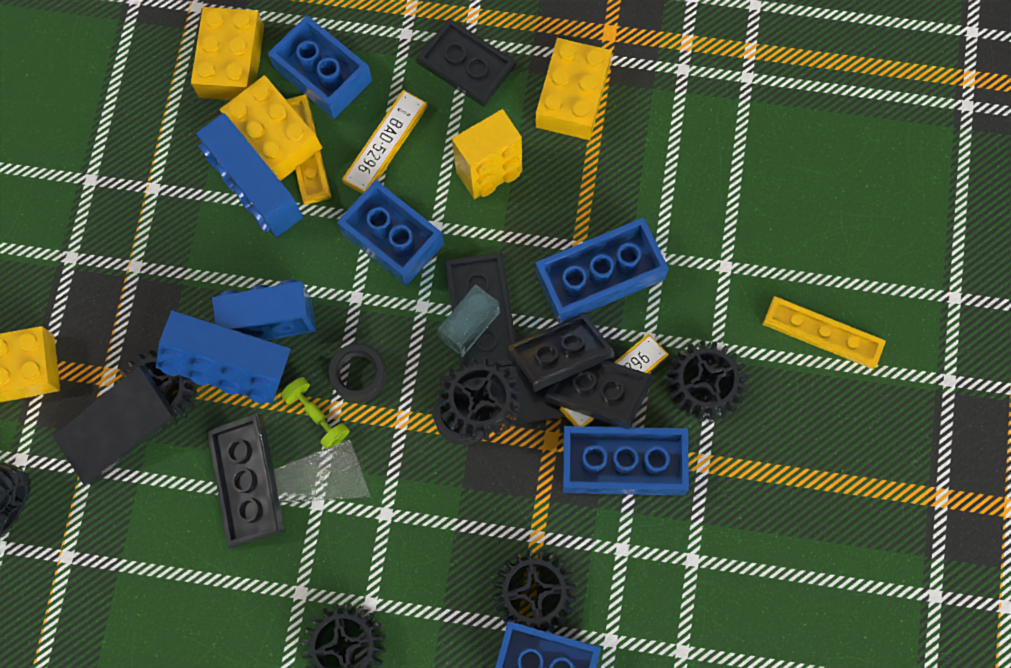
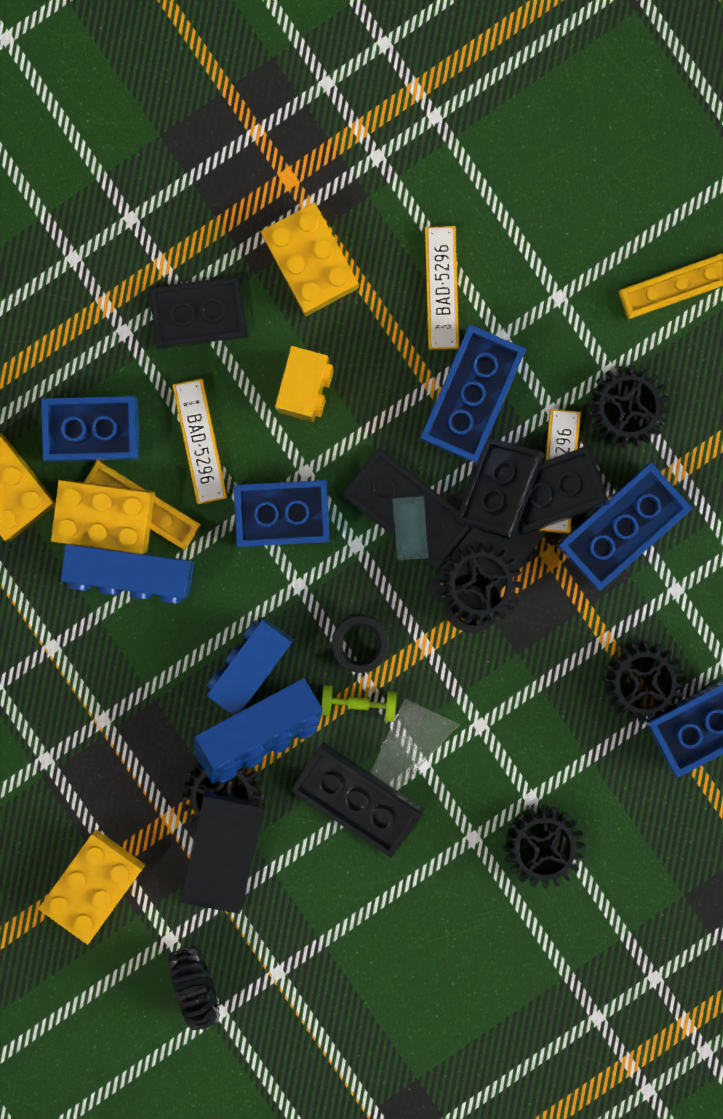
camera: 45 degrees left, 15 degrees up
(648, 185) = (441, 288): none -> white tile

